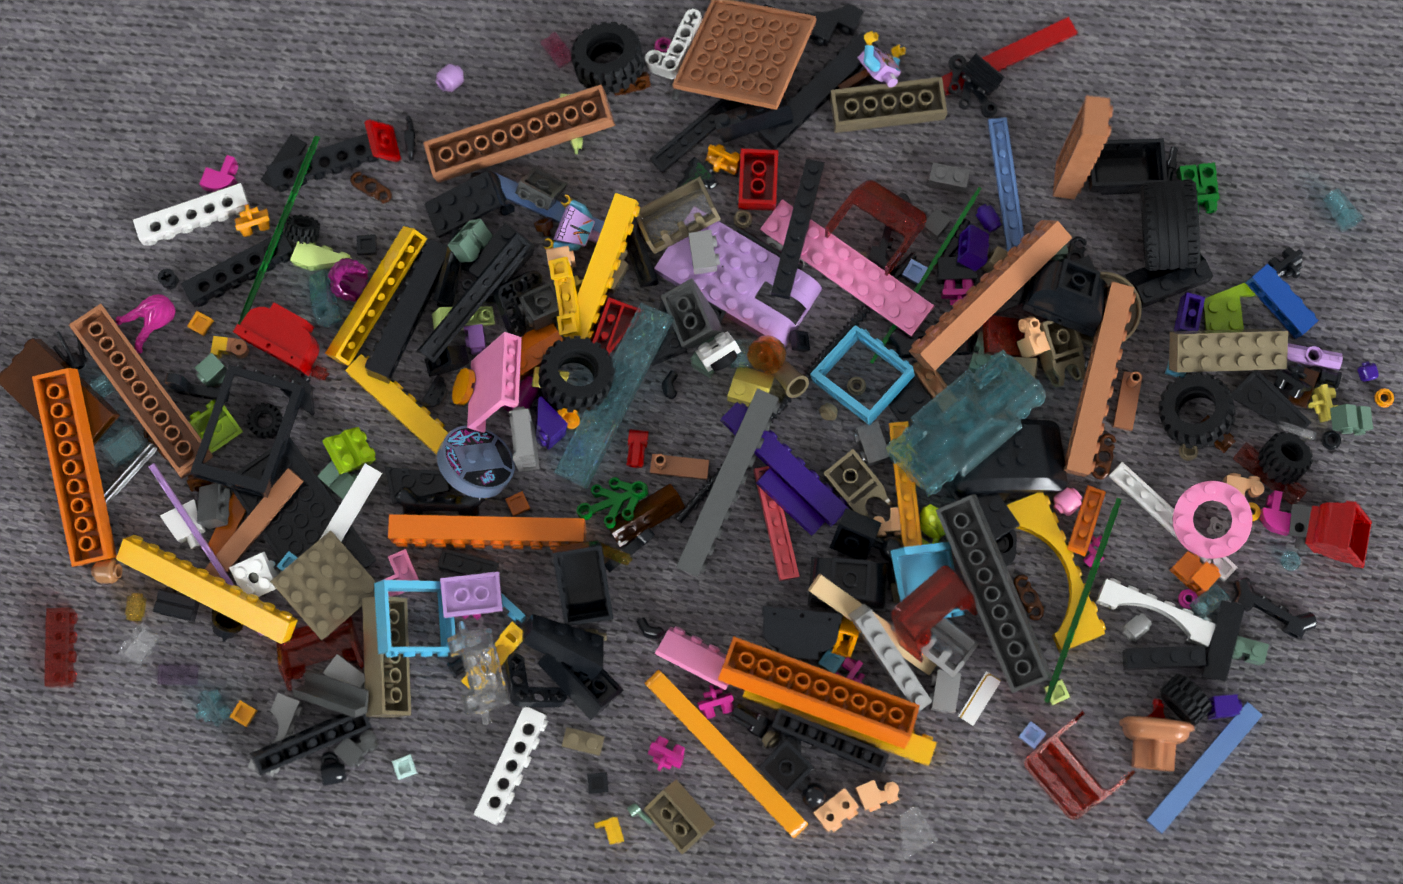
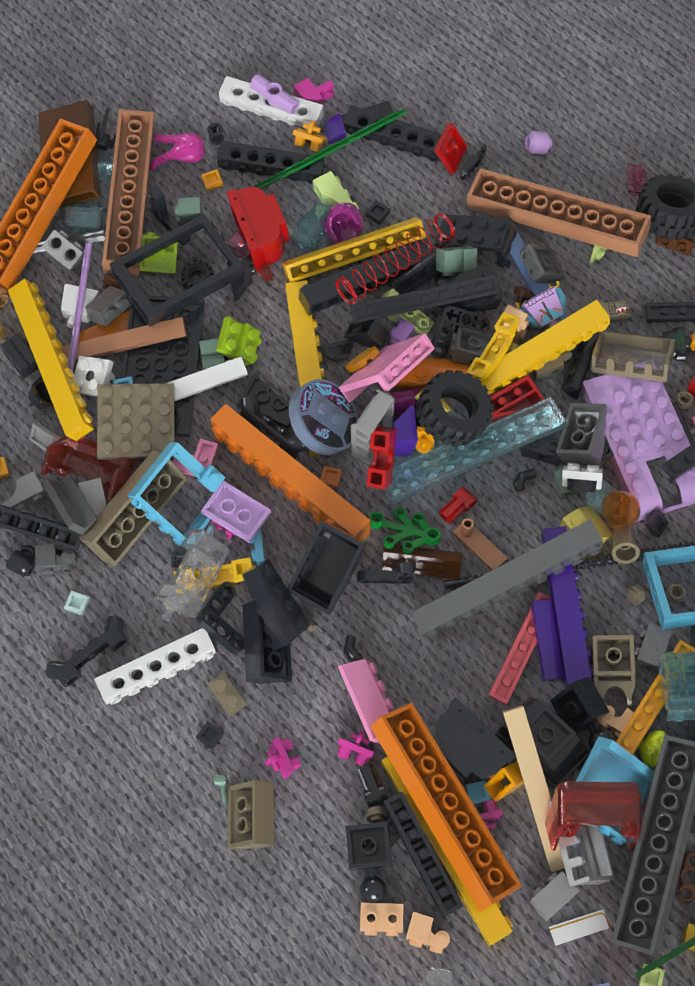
camera: 40 degrees right, 10 degrees down
(131, 492) = (61, 253): none -> light grey brick
(204, 206) = (274, 94): none -> lavender piece
(229, 346) = (217, 208): leg -> none
(260, 658) = (42, 436): none -> light grey tile
(268, 197) = (334, 129): none -> dark purple slope
(277, 366) = (239, 245): none -> clear pink leg
(302, 229) = (339, 166): black tyre -> none
(379, 187) = (415, 170): reddish brown piece -> none
(430, 584) = (211, 478): none -> medium azure plate
(435, 225) = (347, 282): none -> red piece
(446, 826) = (68, 672): none -> black plate
(465, 563) = (253, 488): black plate -> none
(556, 466) = (381, 469): none -> red arch
(612, 829) = (189, 781): yellow tile -> none
(615, 554) = (371, 567): clear yellow axle -> none
(629, 185) = (617, 311): none -> dark tan leg
(702, 252) = (631, 394): light grey brick -> none
(726, 753) = (330, 799): light orange beam -> none
(889, 656) = (528, 825): light grey brick -> none

